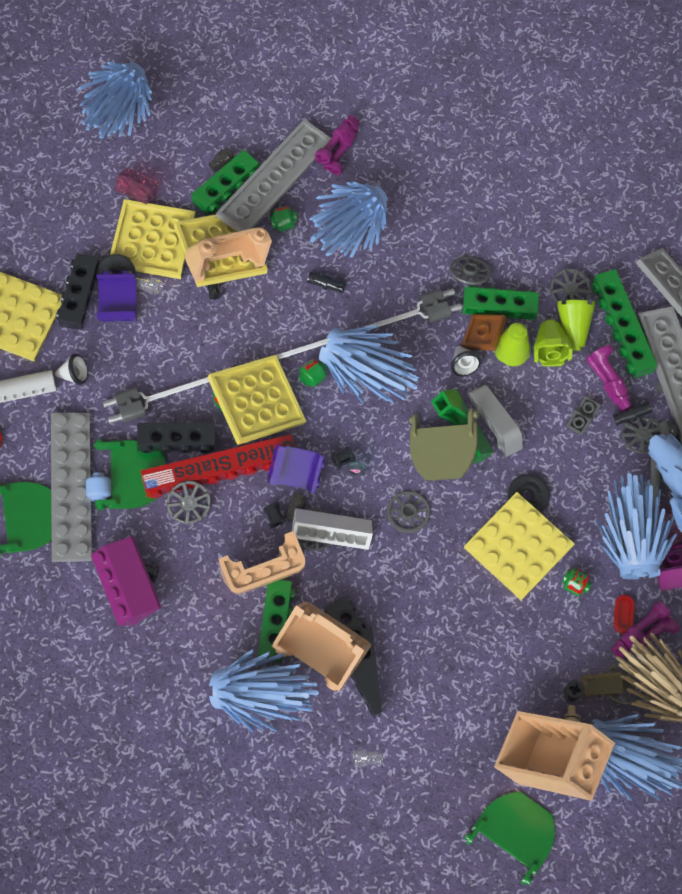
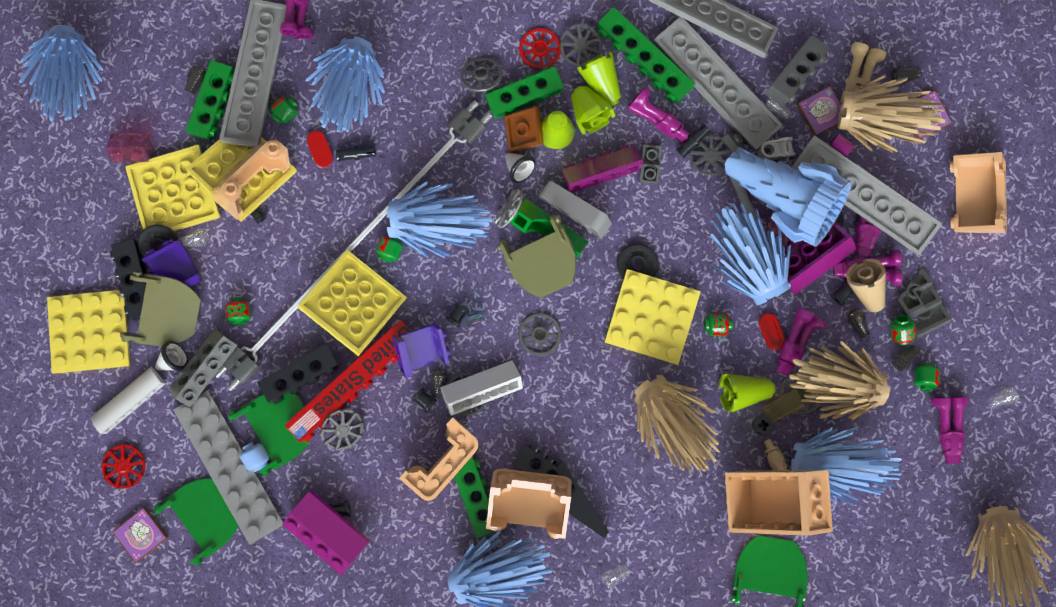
camera: 25 degrees left, 15 degrees up
(92, 330) = (167, 311): none -> olive piece
(96, 390) = (202, 367): none -> dark grey brick
(152, 361) = (238, 311): none -> green head
(296, 265) = (320, 149): none -> red tile
(438, 388) = (509, 208): none -> light grey wheel
(488, 620) = (673, 418): none -> tan plant
(532, 275) = (539, 48): none -> red wheel
(537, 398) = (601, 169): none -> magenta slope
(572, 651) = (743, 391): none -> lime cone

